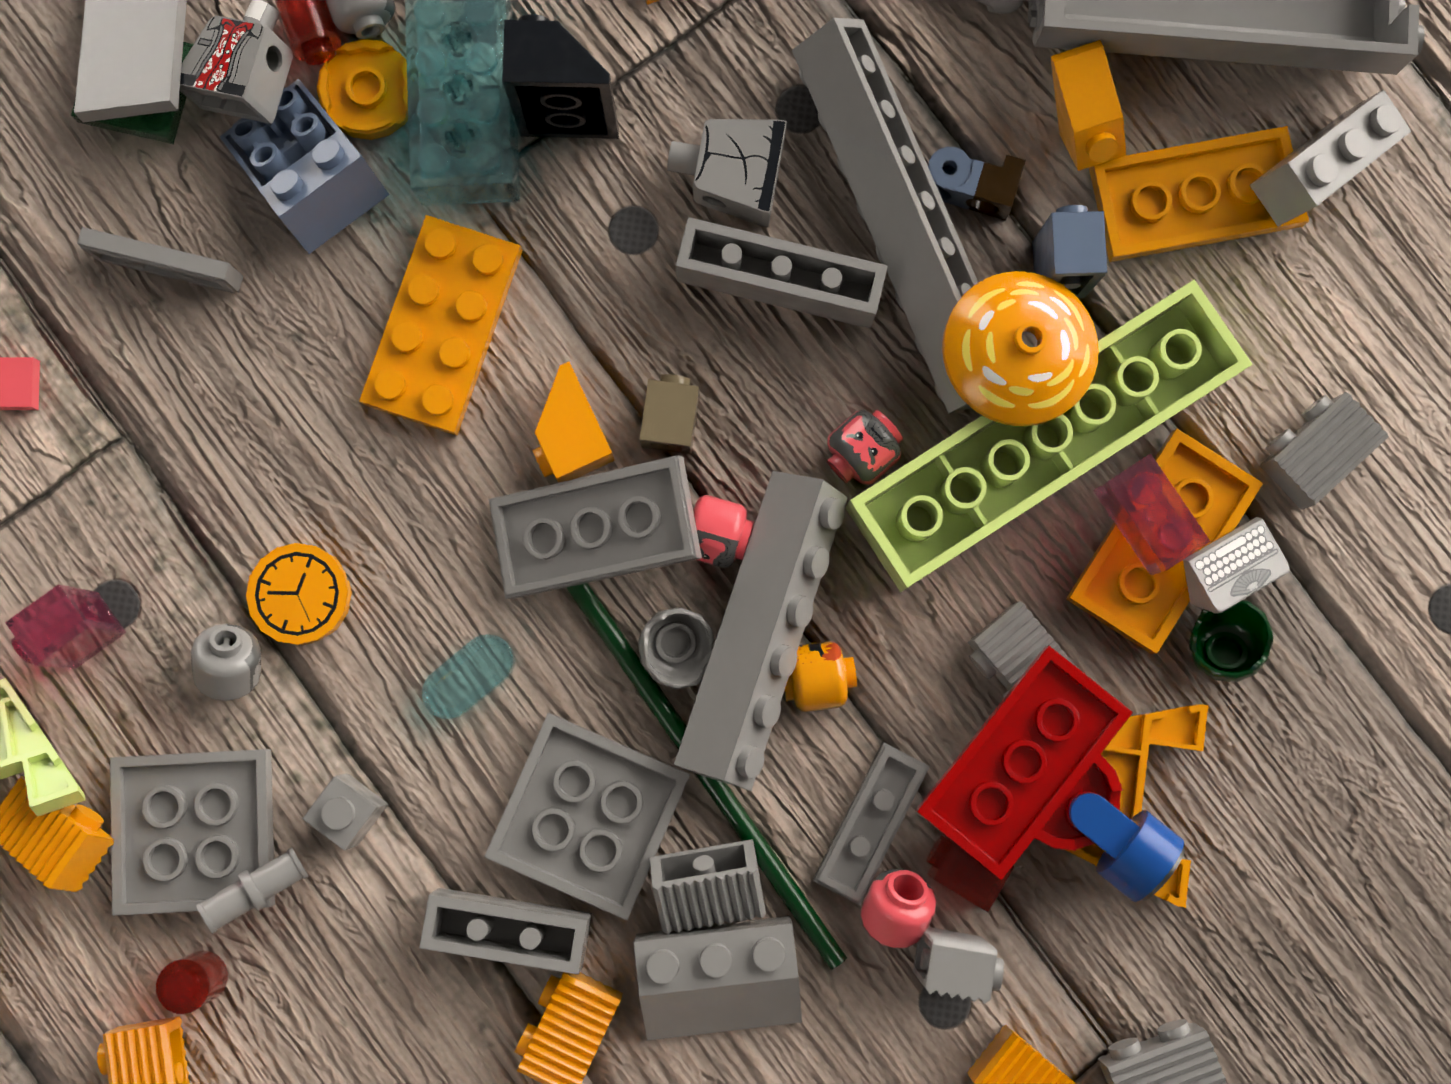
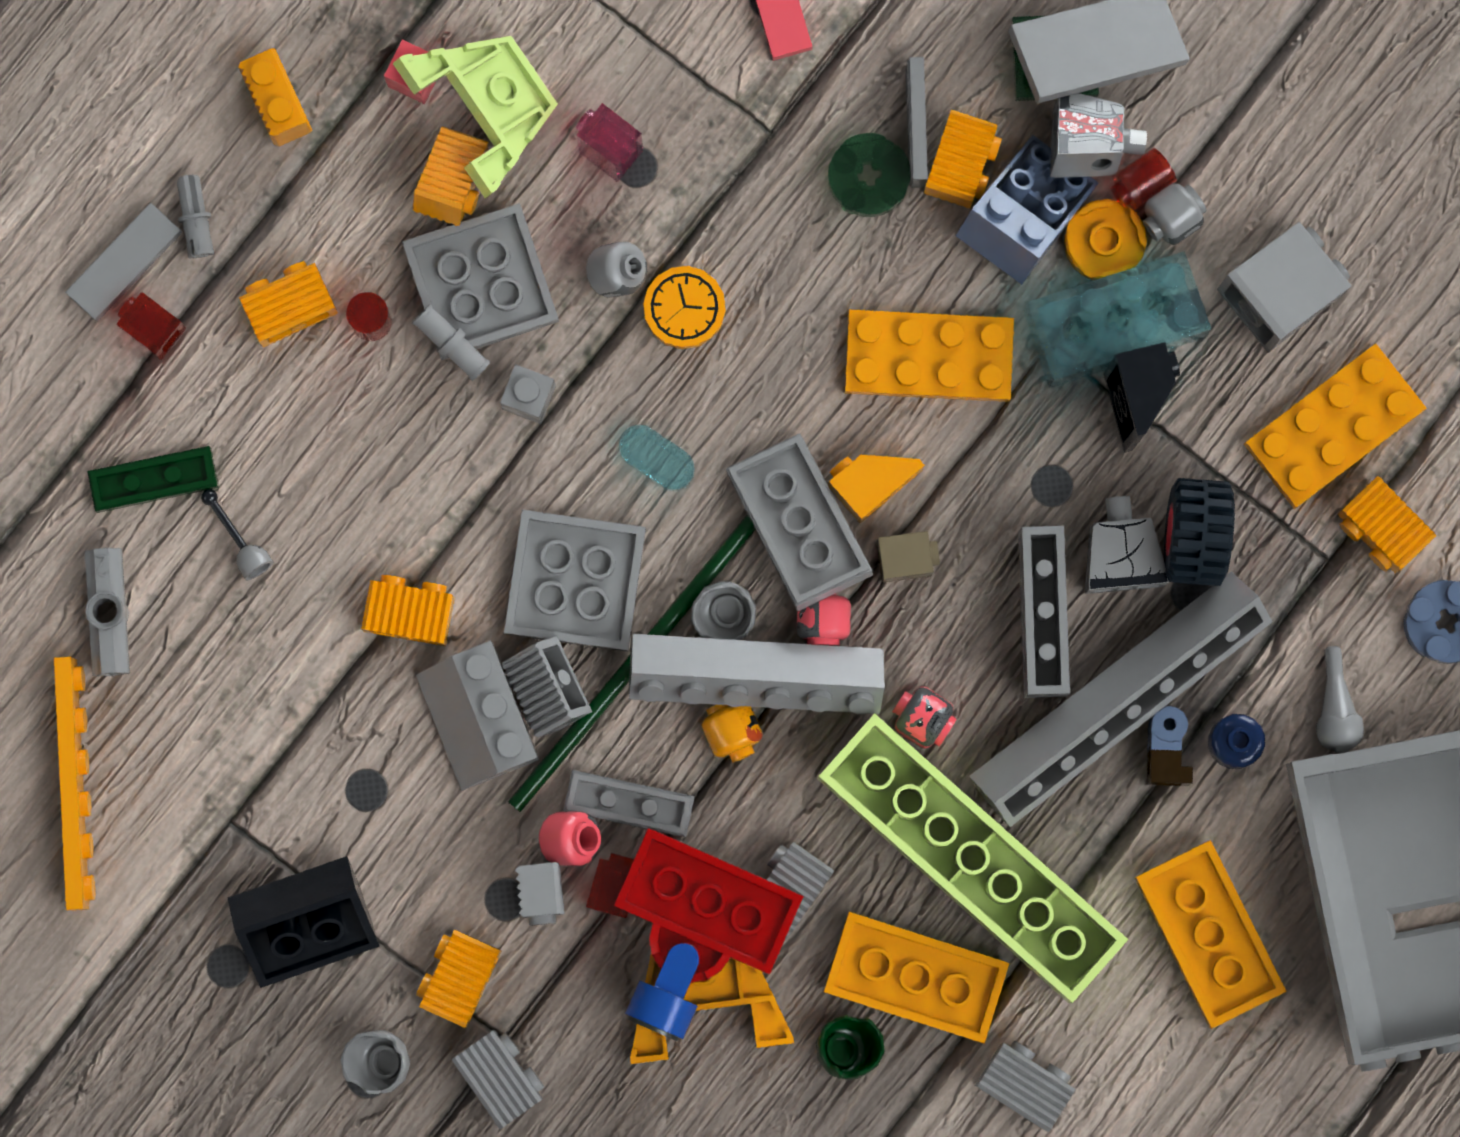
camera: 75 degrees right, 0 degrees up
(188, 312) = (856, 195): none -> clear green plate
(220, 220) = (961, 159): none -> light orange brick
(506, 930) = (472, 542): light grey brick -> none
(738, 64) = (1199, 531): none -> black wheel
(988, 99) = (1236, 741): none -> dark blue head
(1001, 373) = (1001, 807): light orange dish -> none
(1072, 248) = (1124, 836): sand blue brick -> none
(1088, 106) = (1248, 820): light orange slope -> none
(1151, 515) = (930, 953): clear pink brick -> none
(1234, 567) = (909, 1035): slope -> none
(1330, 158) = (1263, 1028): light grey brick -> none

